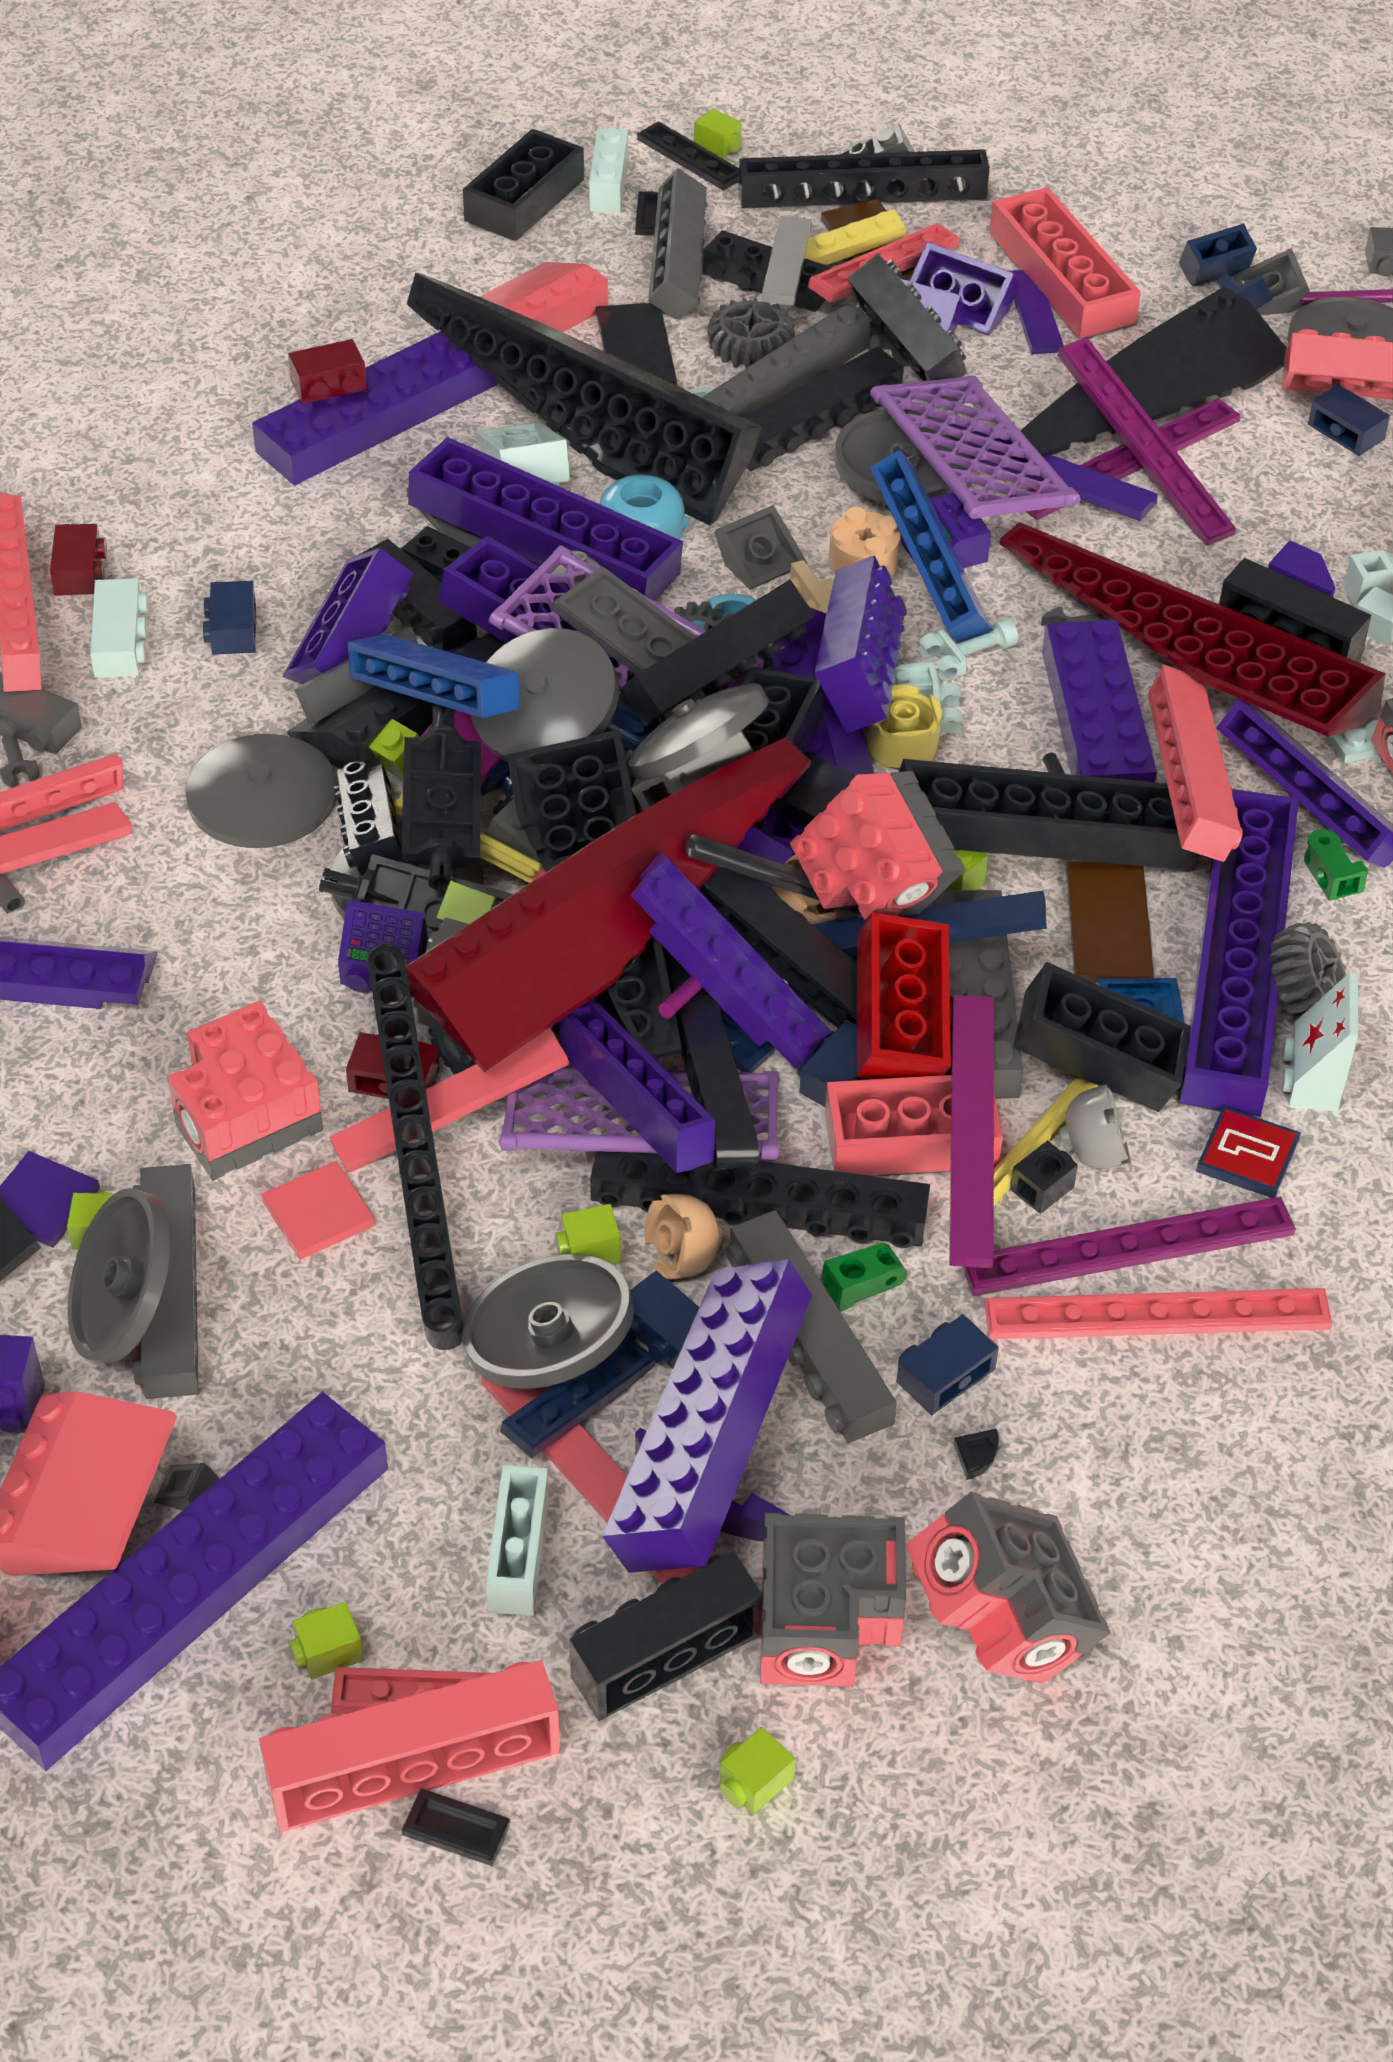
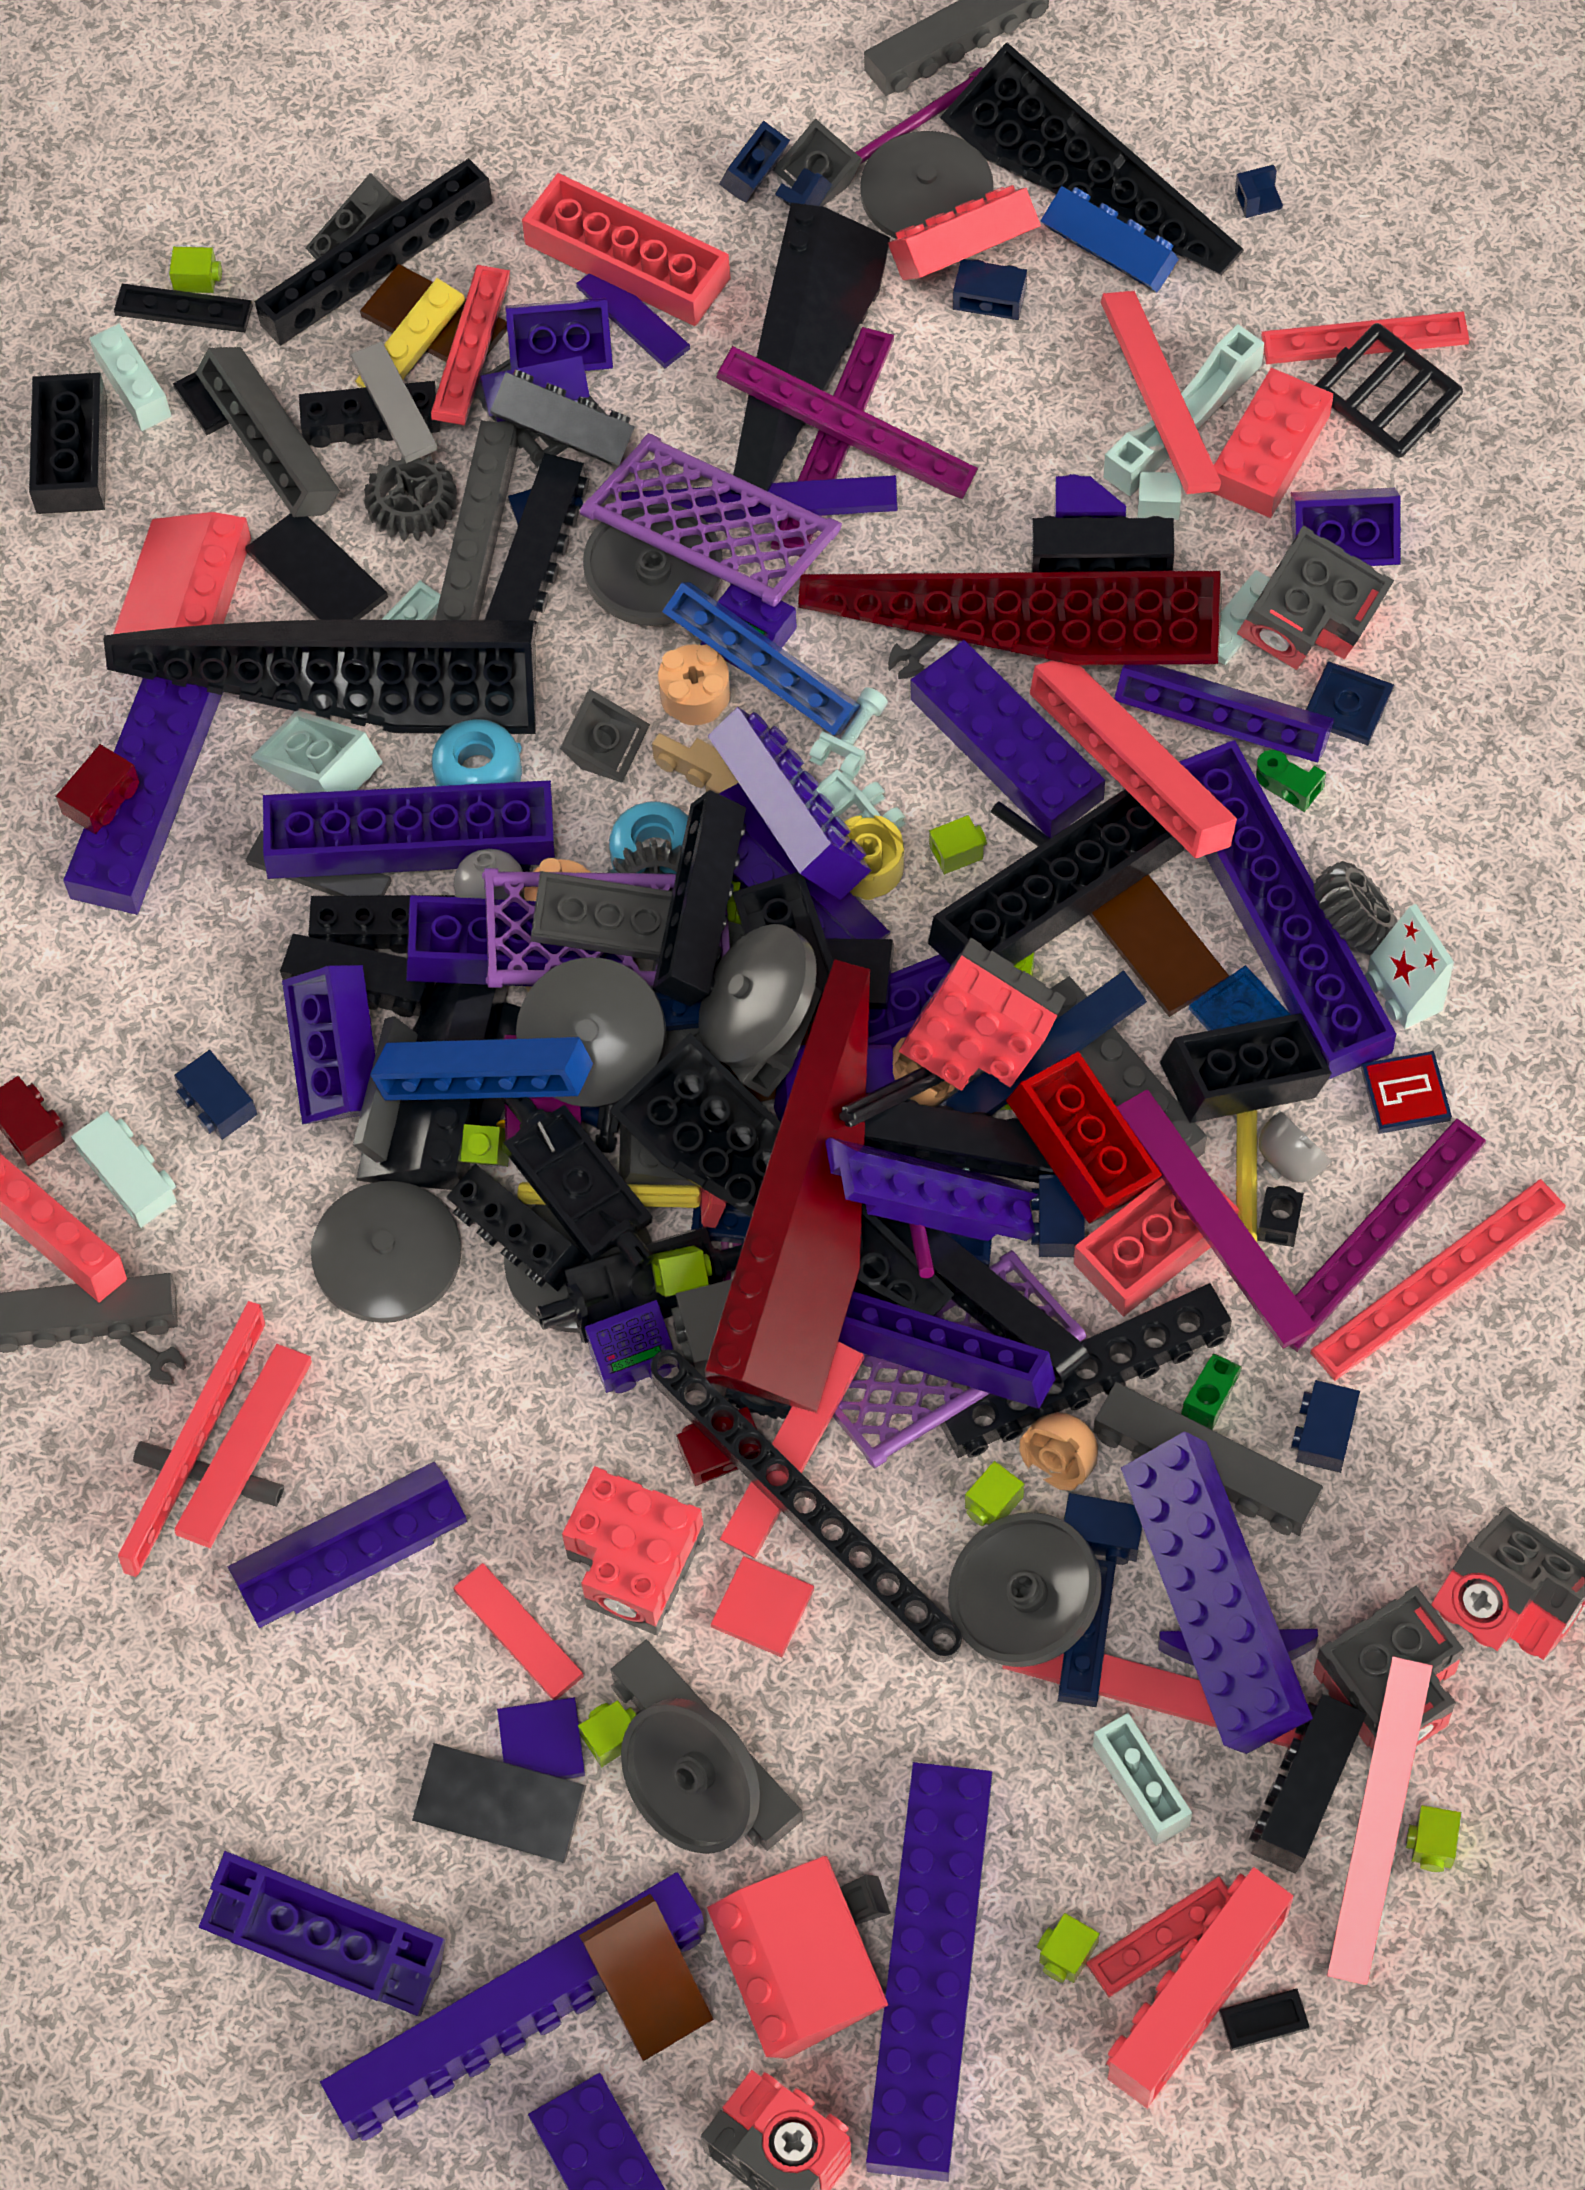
camera: 30 degrees left, 15 degrees up
(102, 1109) = (518, 1632): none -> coral tile
(700, 1703) = (1379, 1820): none -> tile
(976, 1451) = (1395, 1482): black tile -> none
(991, 752) = (957, 844): none -> lime brick

